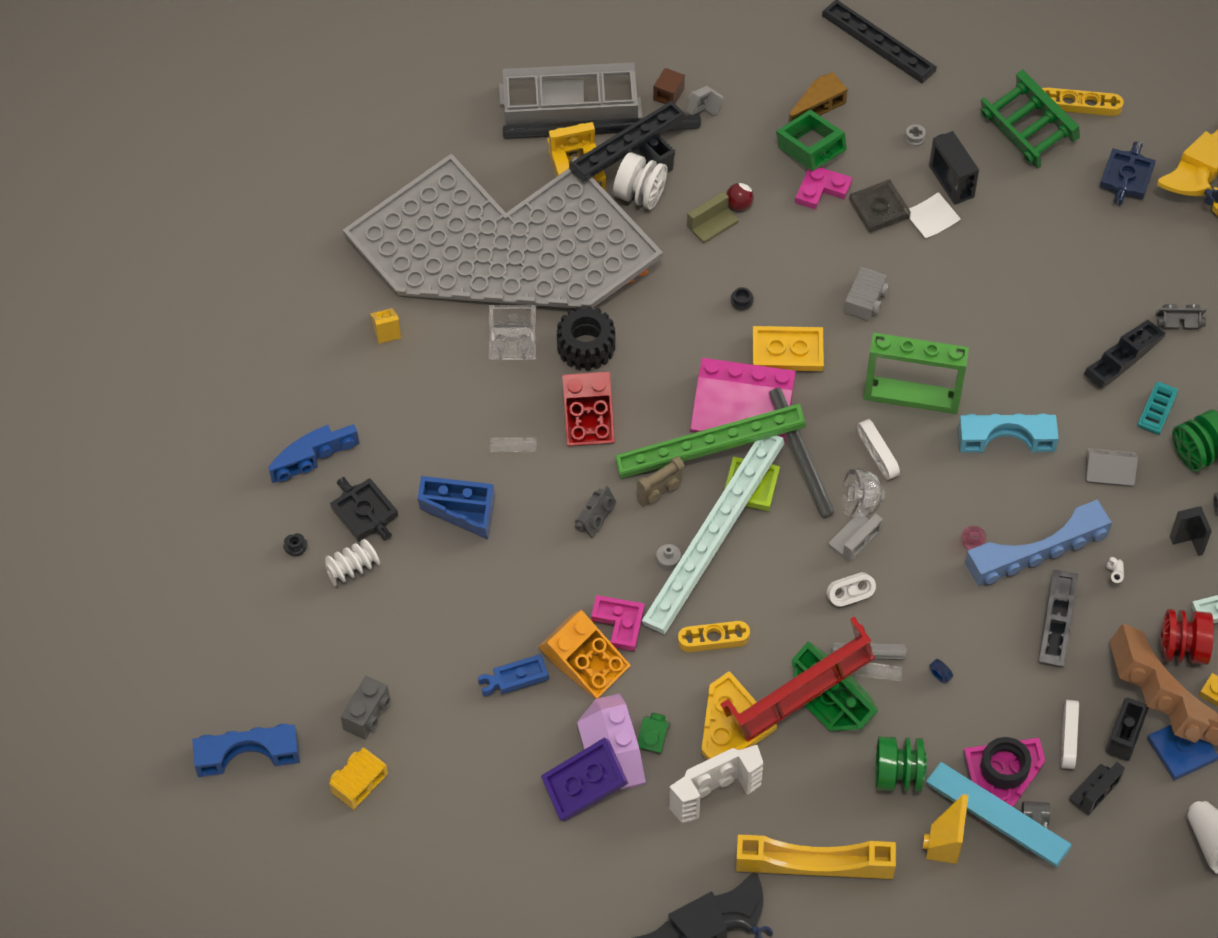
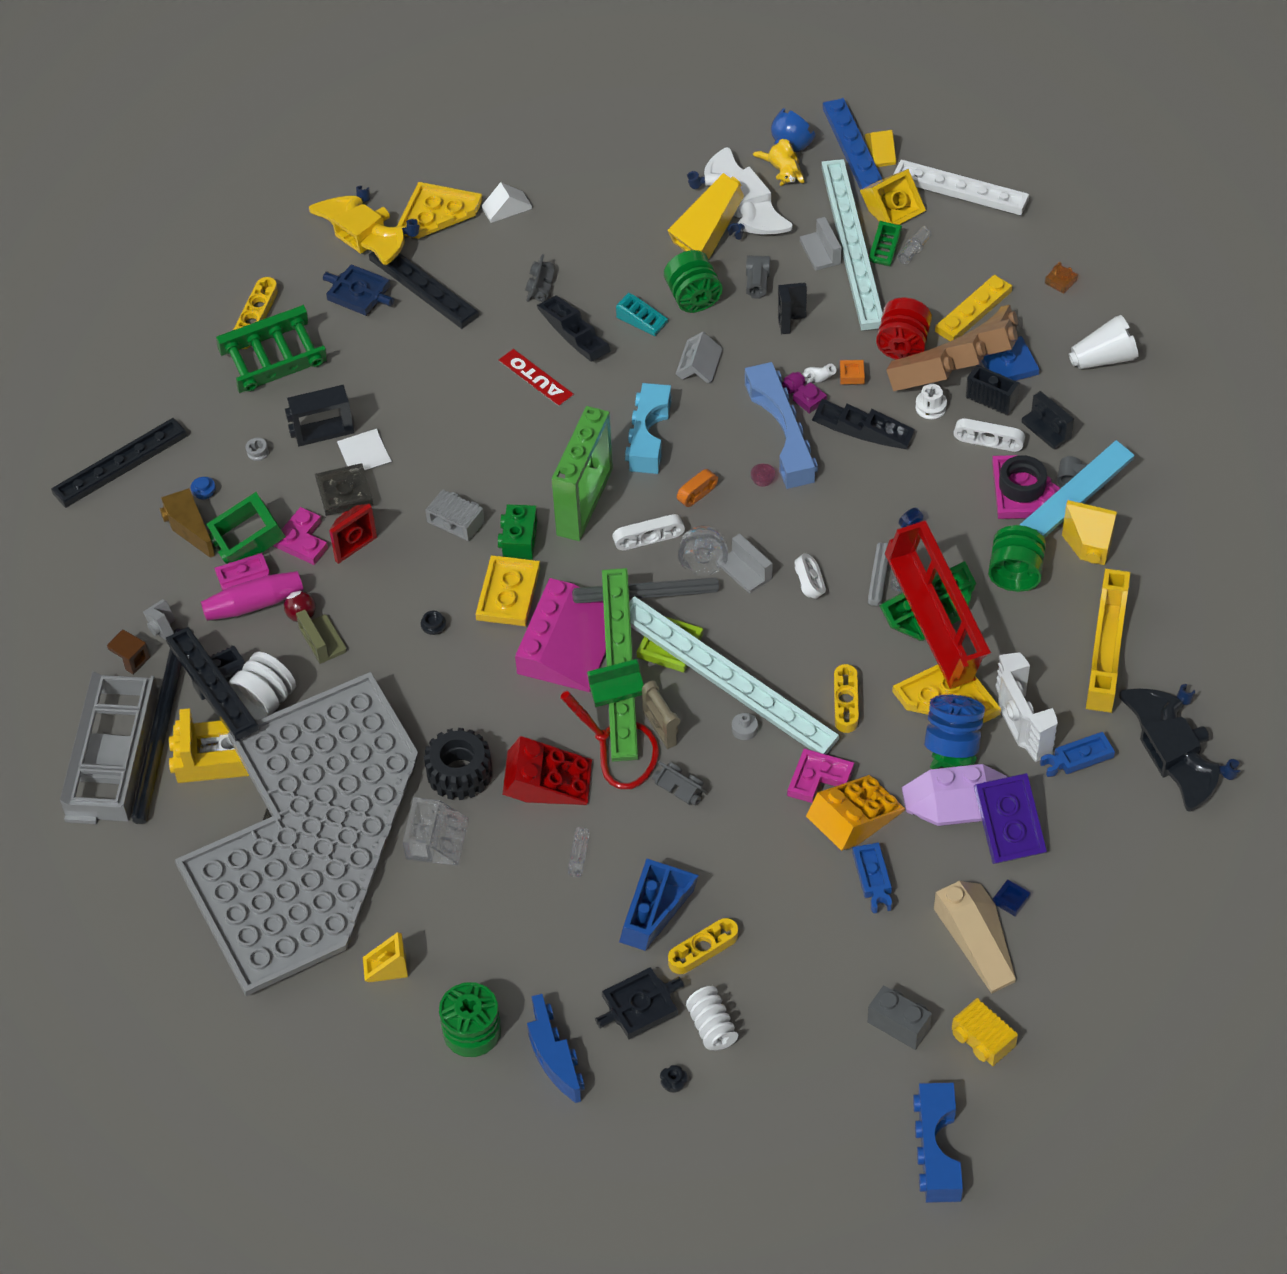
camera: 80 degrees left, 5 degrees down
(329, 385) = (470, 1019): none -> green wheel
(426, 540) = (700, 957): none -> yellow beam
(472, 763) = (977, 930): none -> tan wedge
(508, 795) = (1011, 898): none -> clear blue tile
(639, 443) = (603, 735): none -> red piece
(677, 842) = (1079, 754): none -> blue plate
(678, 720) = (954, 726): none -> blue wheel
(680, 438) = (615, 682): none -> green panel
(752, 156) = (248, 588): none -> dark pink plate
(825, 216) = (352, 531): none -> red slope
(852, 345) = (519, 531): none -> green brick
(861, 104) = (203, 487): none -> blue plate
(941, 482) = (697, 487): none -> orange beam
(1058, 335) = (536, 377): none -> red sticker
(1089, 566) = (805, 396): none -> magenta plate
(1103, 685) = (935, 398): none -> white piece
(1126, 601) = (852, 372): none -> orange plate
(1145, 232) = (428, 289): none -> black tile

